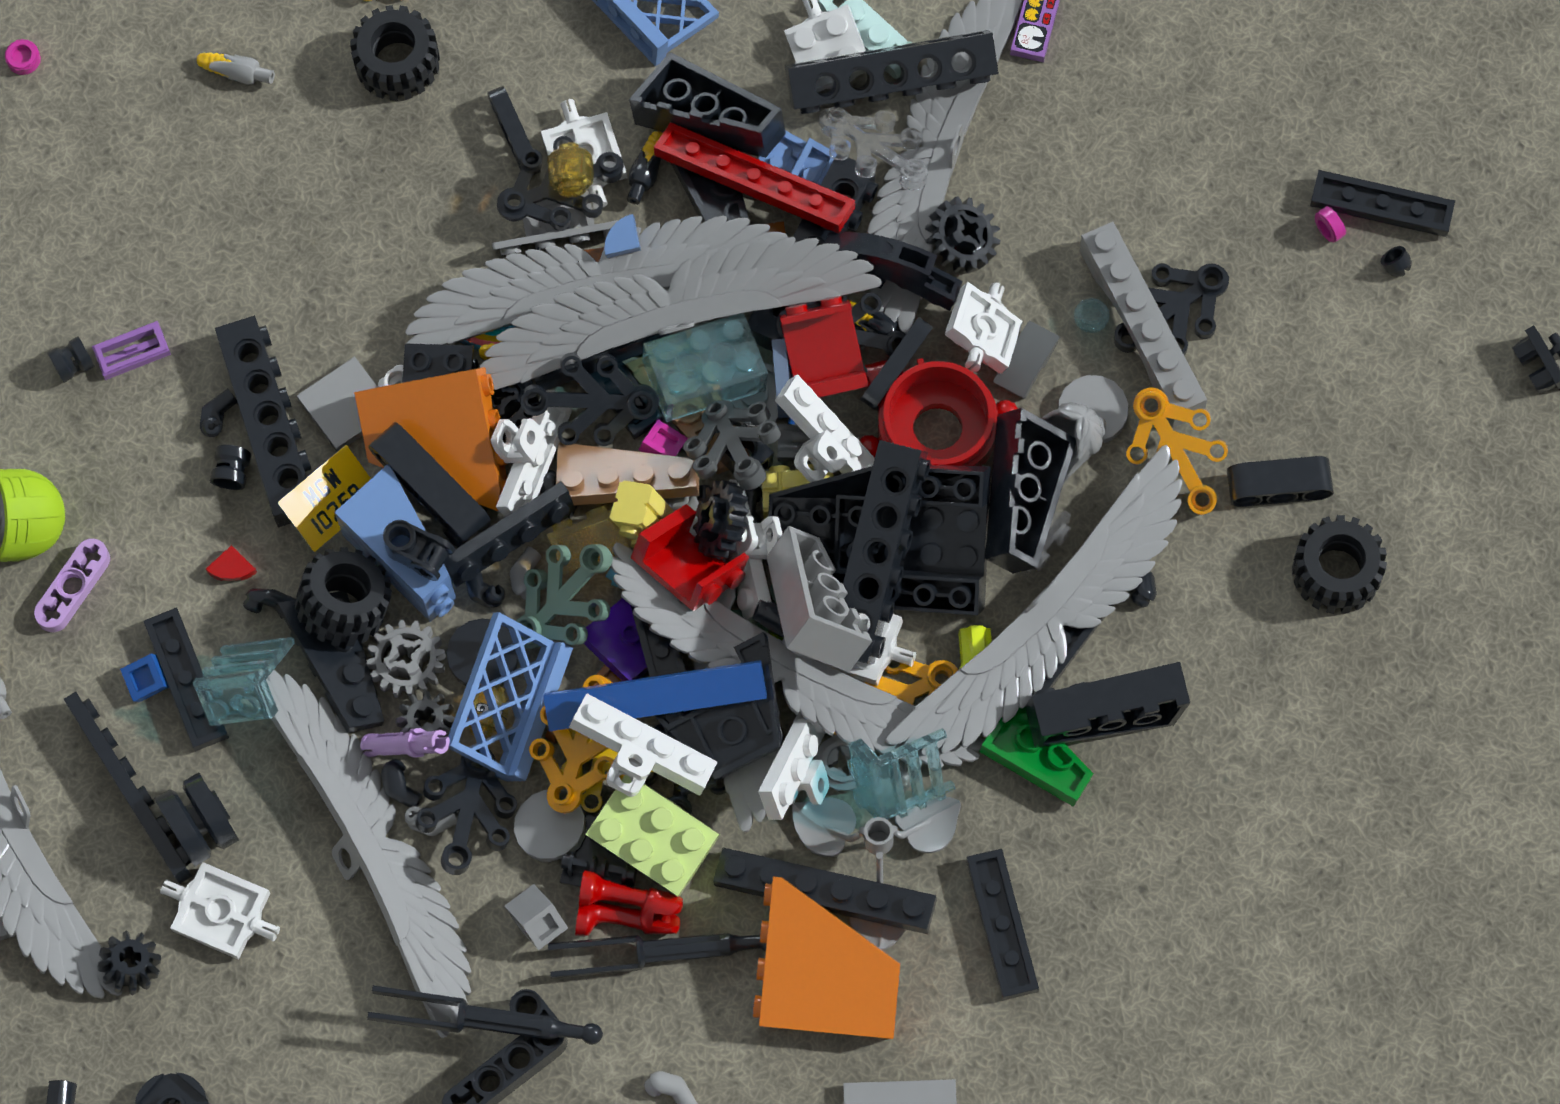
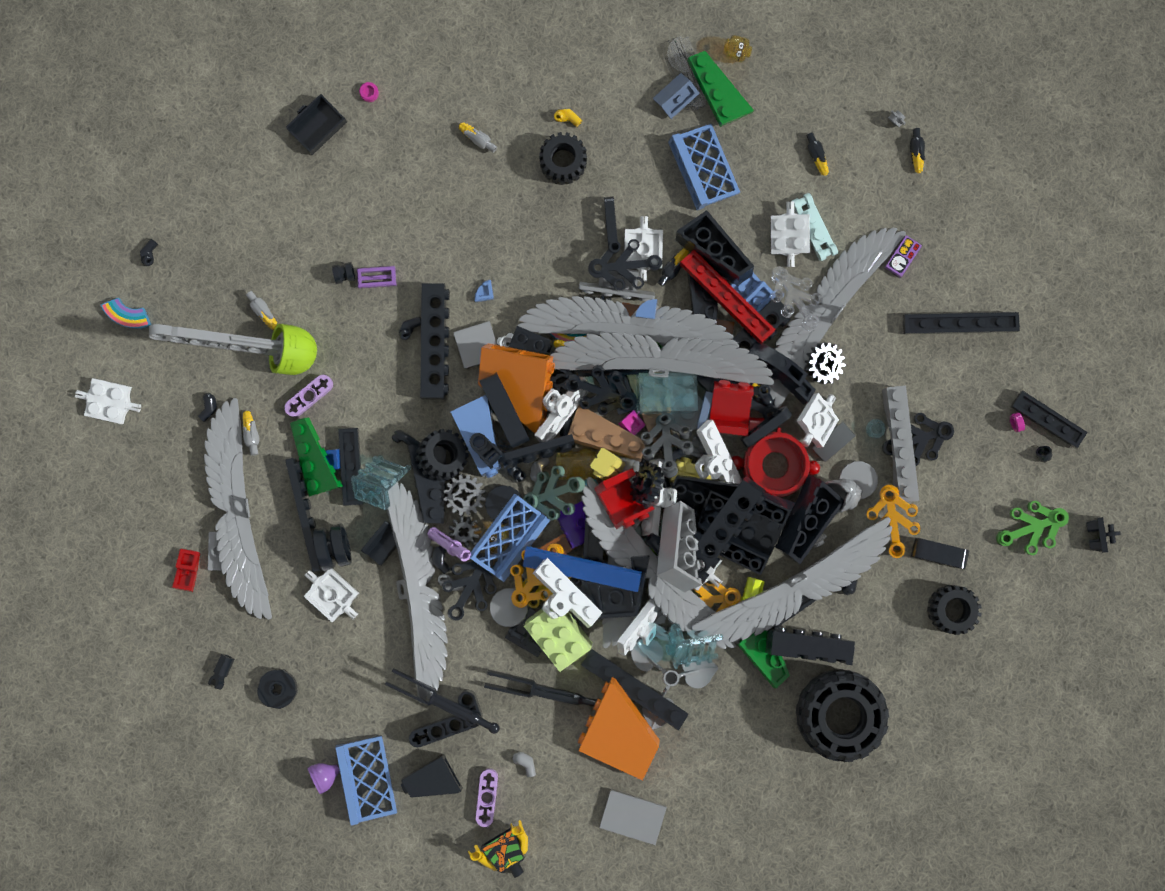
camera: 15 degrees right, 15 degrees up
(118, 971) = (272, 611): black gear -> none
(122, 697) = (315, 467): none -> green wing
(230, 467) = (407, 360): black wheel -> none
(231, 567) = (392, 413): red tile -> none
(282, 790) = (381, 544): none -> black panel
(324, 491) = (451, 396): yellow sticker -> none
(330, 314) = (484, 292): none -> medium blue tile
(536, 917) = (486, 654): light grey brick -> none
(570, 170) = (632, 261): clear yellow head -> none
(656, 911) = (525, 658): red piece -> none
(803, 76) = (772, 248): black brick -> none
(1002, 924) = (717, 736): black plate -> none
(1173, 98) = (961, 323): none -> black plate
(1199, 855) = (812, 712): none -> black tyre
(1428, 383) = (1036, 526): none -> bright green plant

